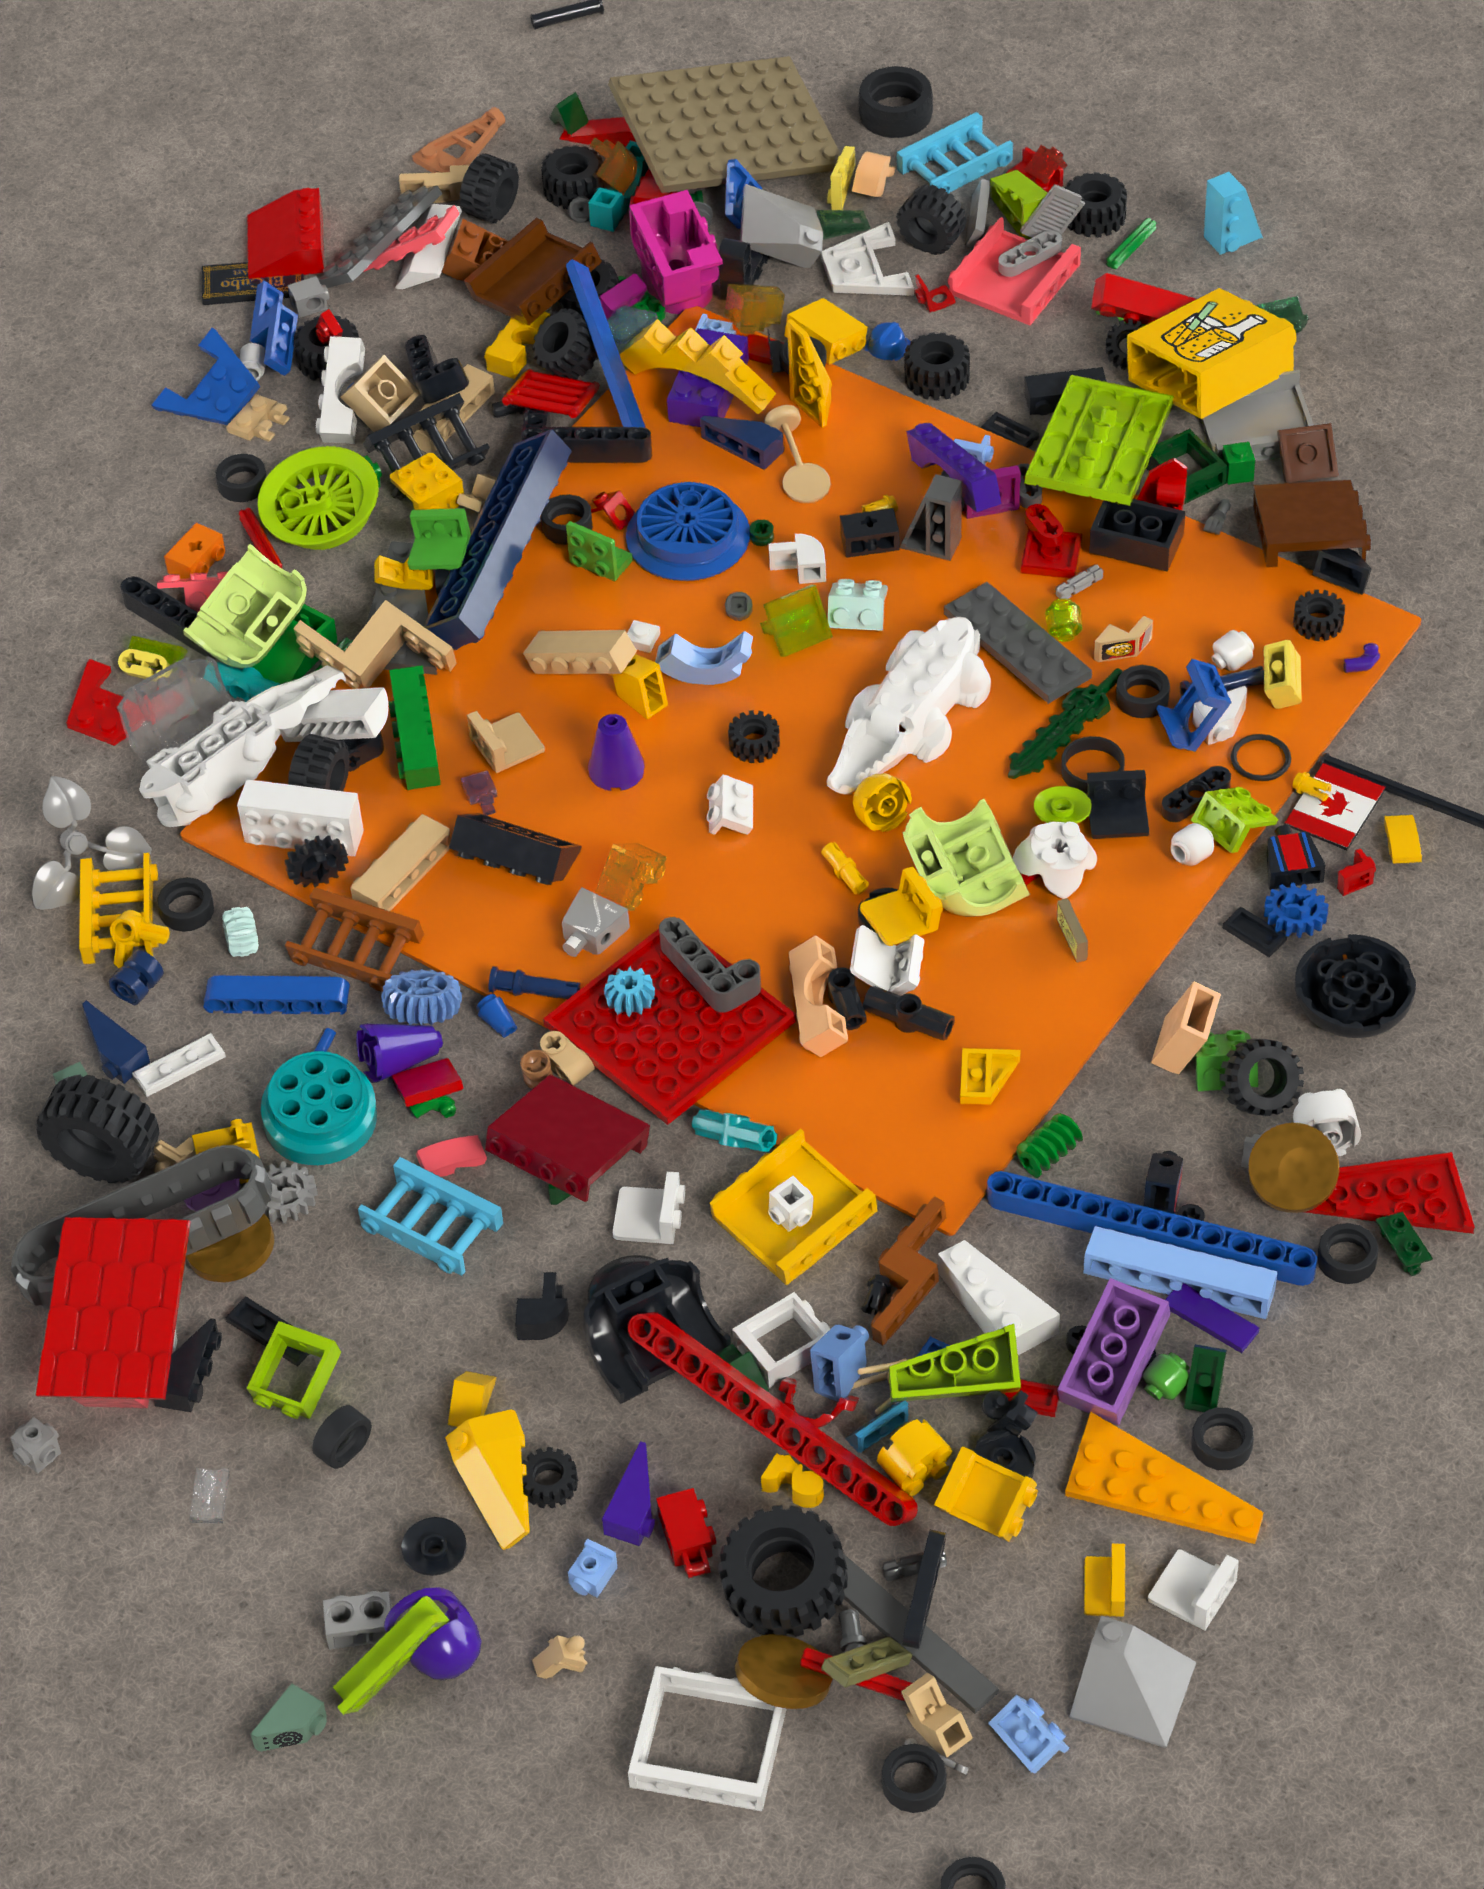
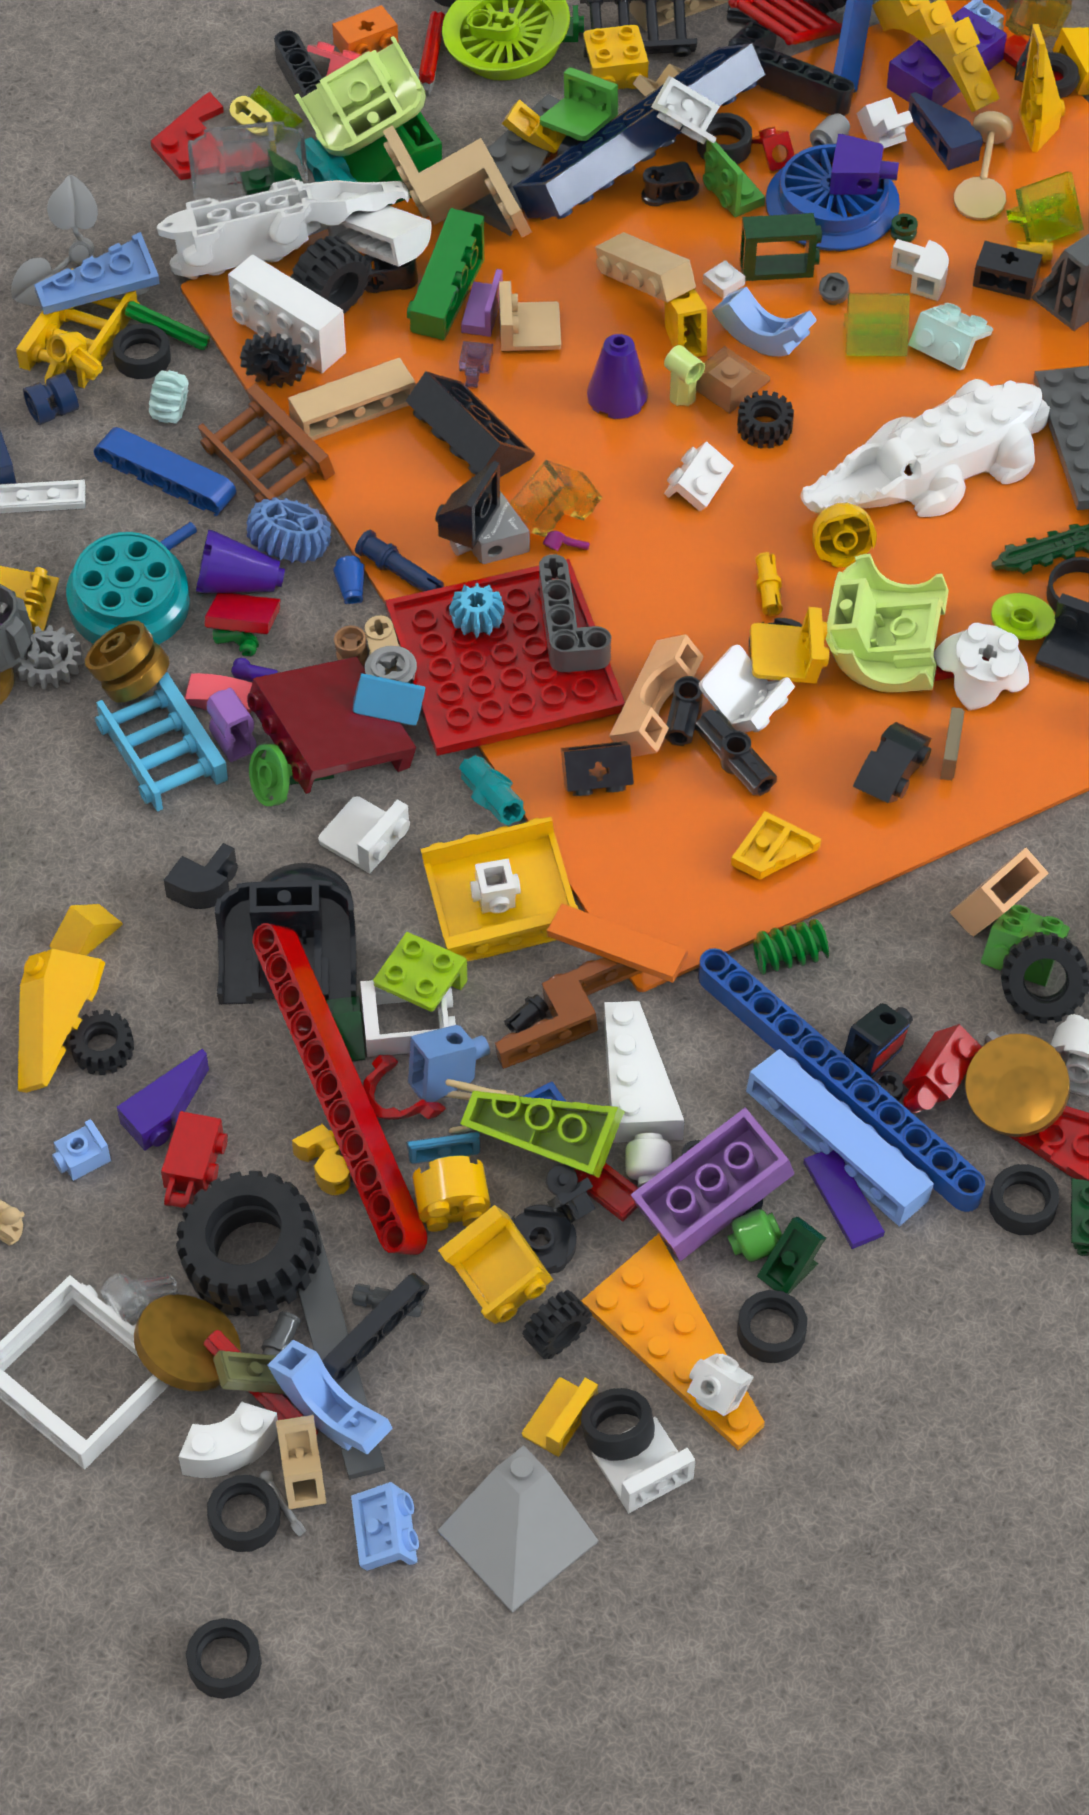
camera: 25 degrees right, 5 degrees up
(122, 849) = (111, 274): none -> medium blue wing
(200, 713) = (261, 179): none -> dark green slope
(200, 872) = (169, 326): none -> green axle
(362, 1163) = (127, 661): none -> pearl gold wheel
(457, 742) = (482, 307): none -> medium lavender panel
(464, 1128) = (245, 671): none -> dark purple arm
(484, 1174) = (231, 724): none -> medium lavender brick
(535, 507) = (686, 108): none -> white bracket
(546, 576) = (670, 182): none -> black piece
(546, 1198) = (269, 775): none -> bright green wheel
(572, 911) = (470, 507): none -> black slope
(577, 1064) = (387, 658): none -> light grey gear
(605, 1095) = (388, 699): none -> dark azure slope
(647, 908) = (555, 539): none -> magenta hand
(651, 477) = (829, 129): none -> light grey brick
(669, 727) = (685, 372): none -> yellowish green piece
(670, 576) = (779, 229): none -> dark green window
(691, 454) = (883, 123): none -> white brick
(698, 717) = (729, 379): none -> medium nougat slope
(702, 496) = (859, 167): none -> dark purple torso
(720, 1656) = (131, 1297): none -> clear piece
(775, 1298) = (421, 972): none -> lime bracket
(793, 1074) = (612, 756): none -> black brick
(868, 1732) = (229, 1444): none -> white brick
(871, 469) = (1048, 209): none -> clear neon green bracket
(911, 1657) = (316, 1393): none -> light blue arch
(921, 1201) = (617, 943): none -> orange tile
(1037, 965) = (889, 768): none -> black brick
(1046, 1359) = (647, 1156): none -> white head
(1063, 1515) = (557, 1324): none -> black tyre
(1167, 1583) = (623, 1445): none -> black tyre
(1222, 1507) = (719, 1383): none -> white brick
(1224, 1183) = (939, 1068): none -> red brick

